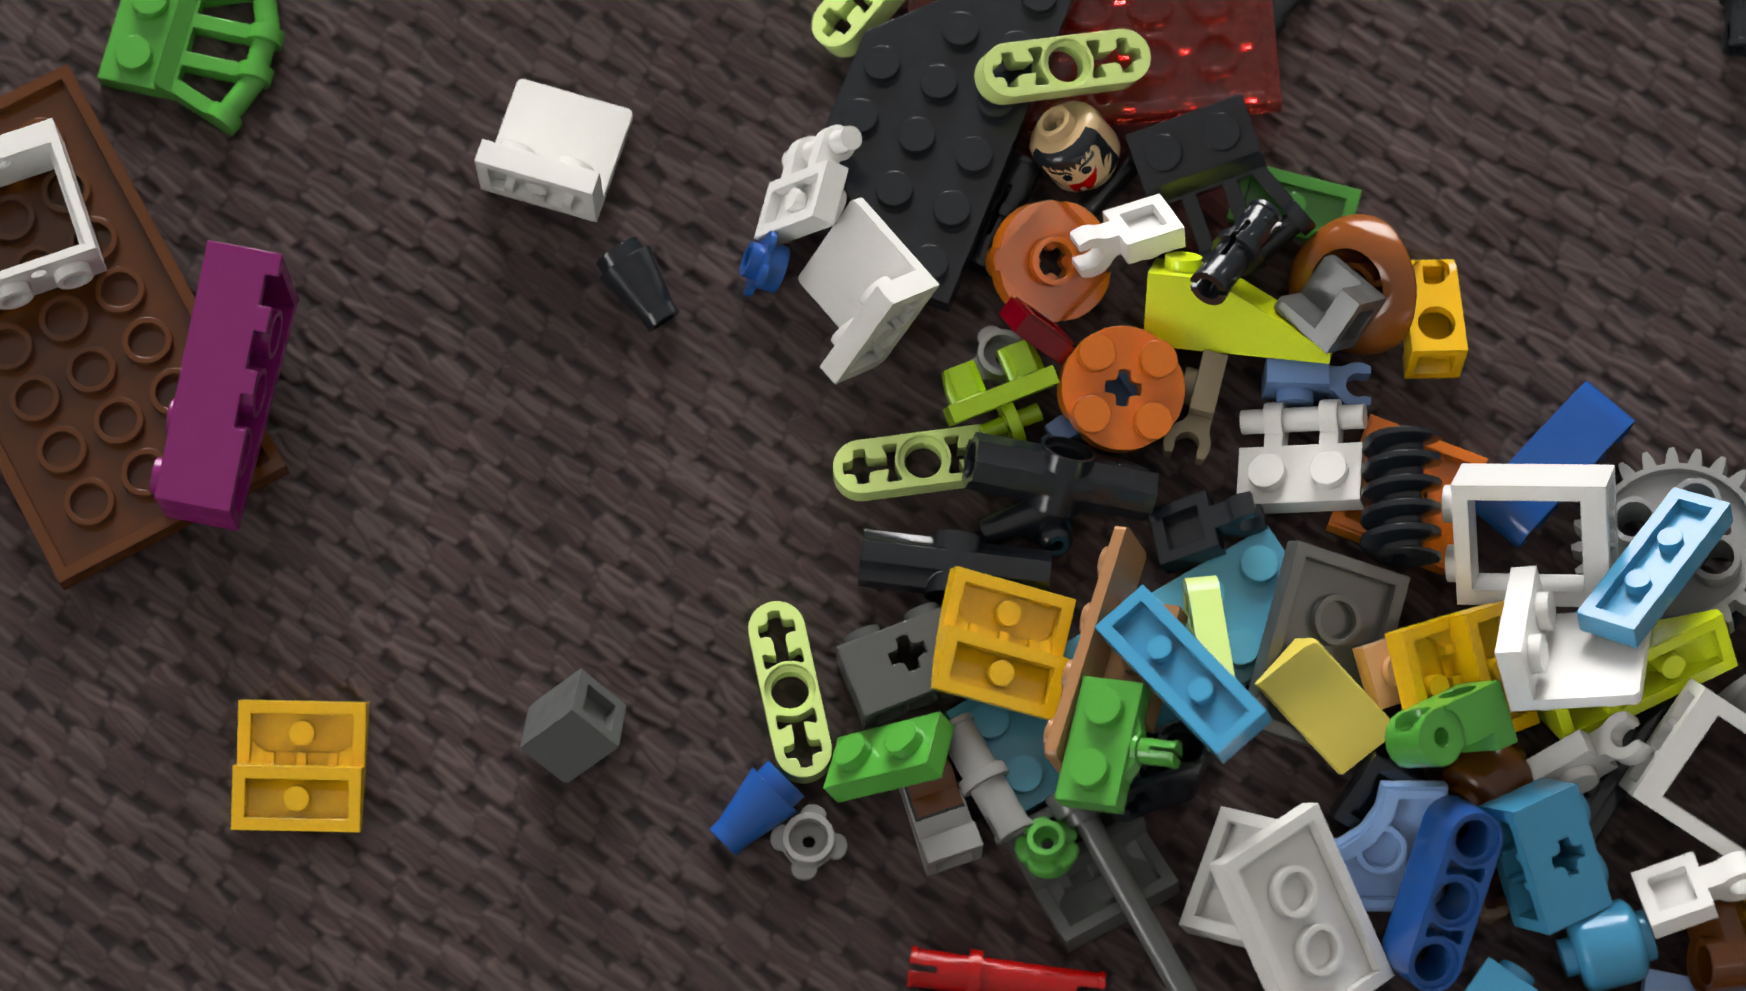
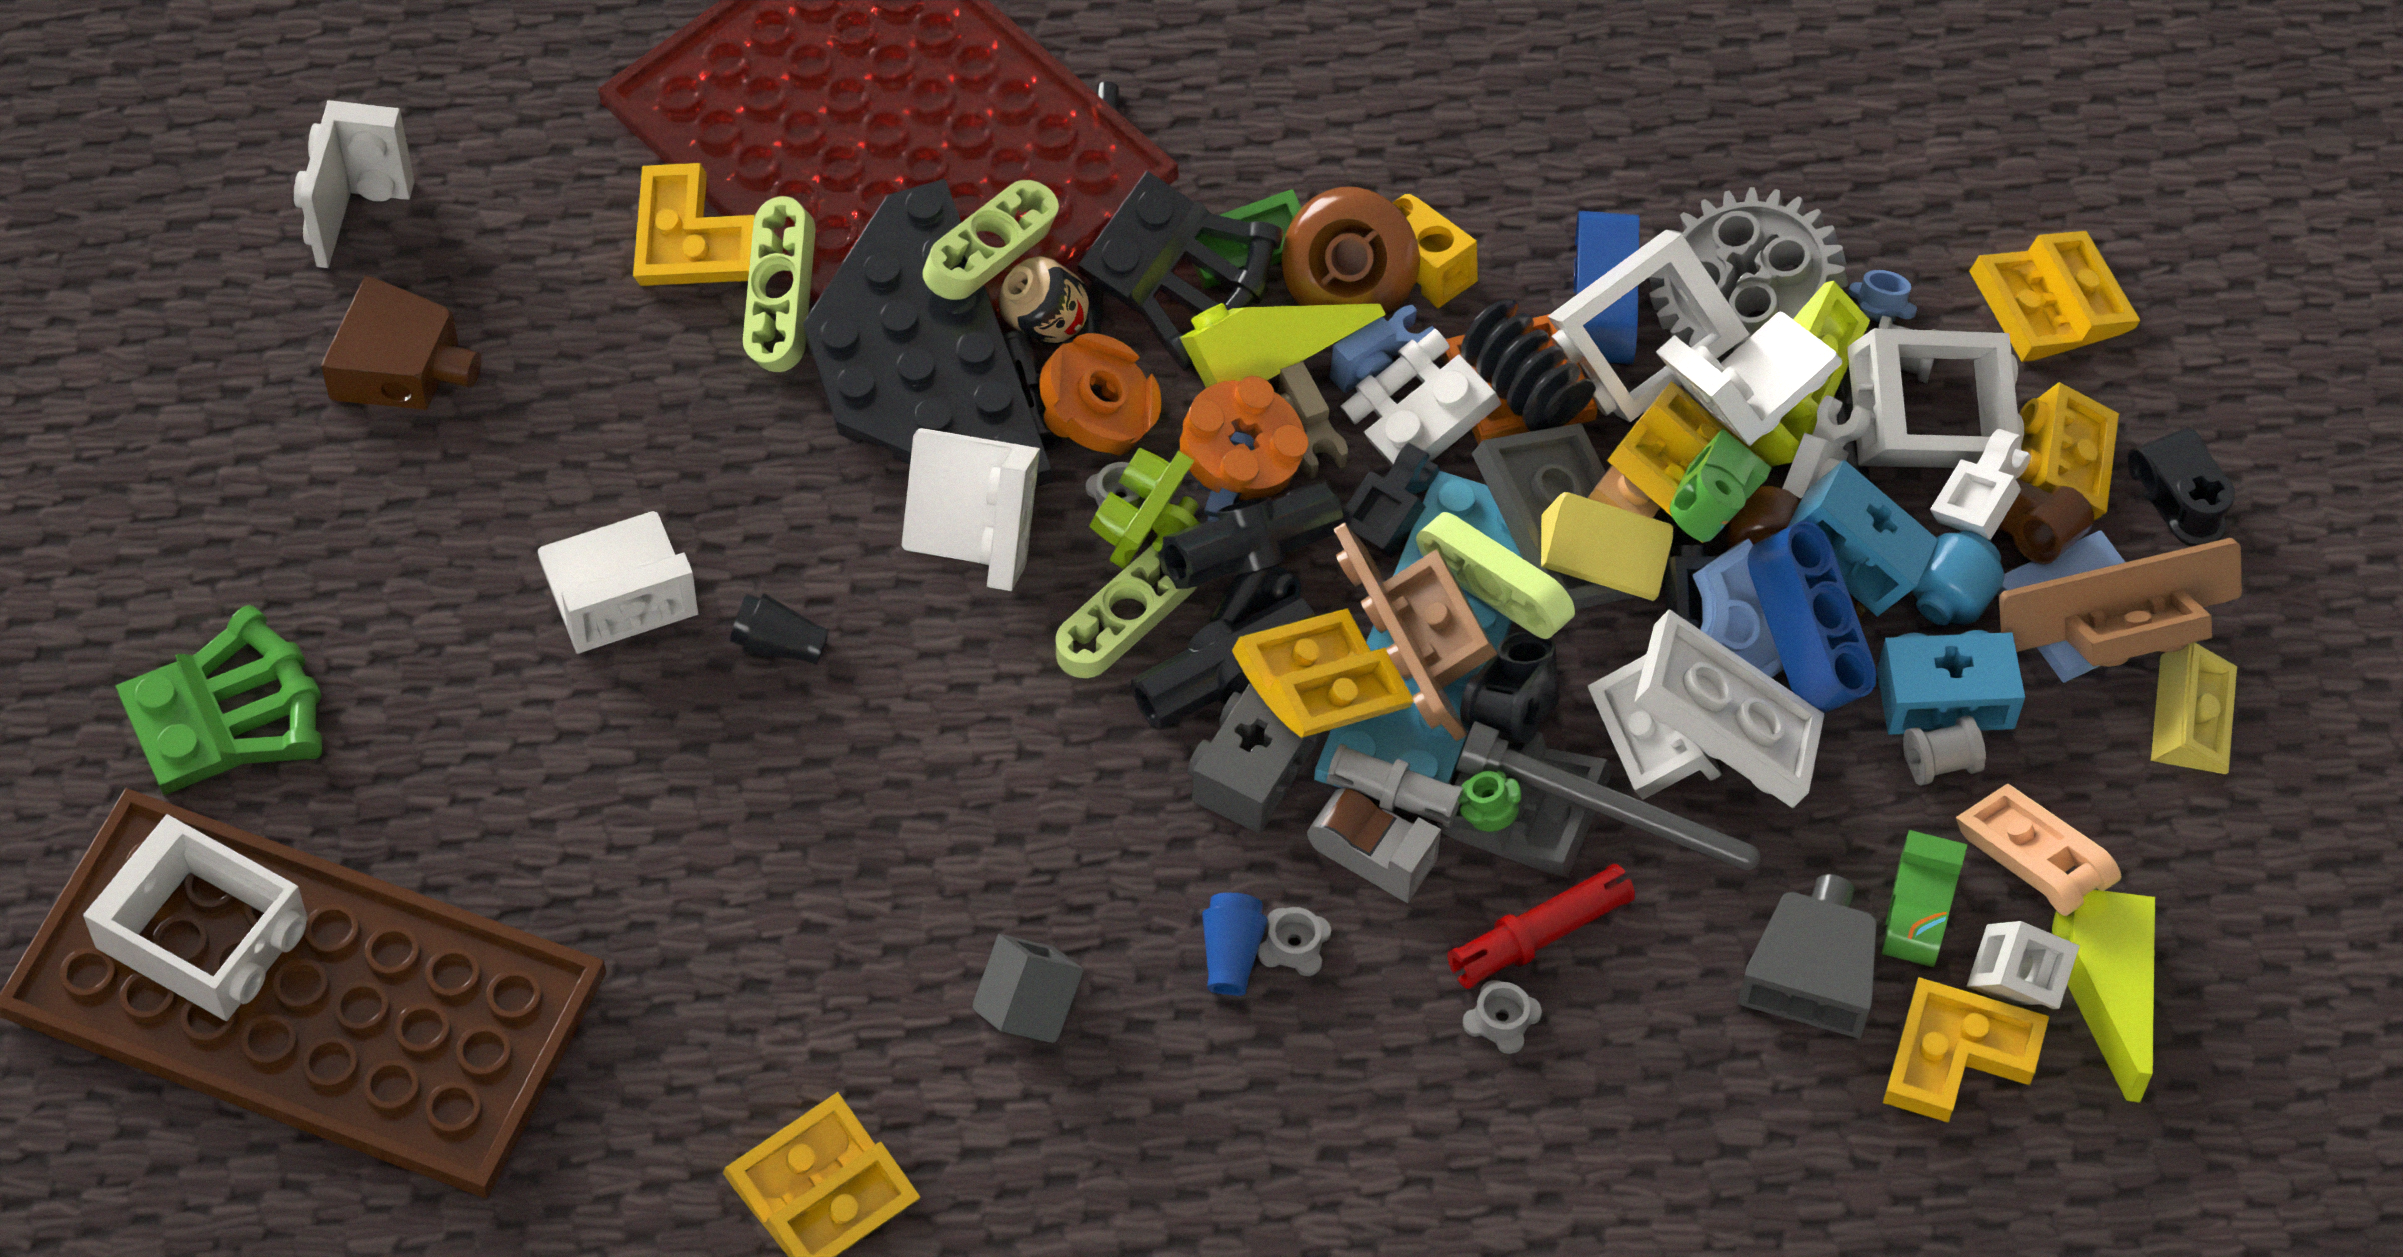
camera: 40 degrees left, 15 degrees down
(225, 385) = (505, 919): magenta wedge -> none
(764, 264) = (870, 548): blue plate -> none
(796, 644) = (1173, 818): yellowish green beam -> none
(810, 186) = (862, 461): white plate -> none
(889, 757) = (1308, 821): bright green plate -> none
(1037, 329) = (1130, 435): dark red tile -> none
(1109, 746) = (1479, 676): bright green plate -> none
(1133, 230) = (1150, 320): white plate -> none
(1183, 674) = (1491, 579): dark azure plate -> none
(1236, 252) = (1250, 274): black pin -> none
(1332, 306) = (1350, 271): dark grey panel -> none
(1655, 567) = (1759, 278): dark azure plate -> none

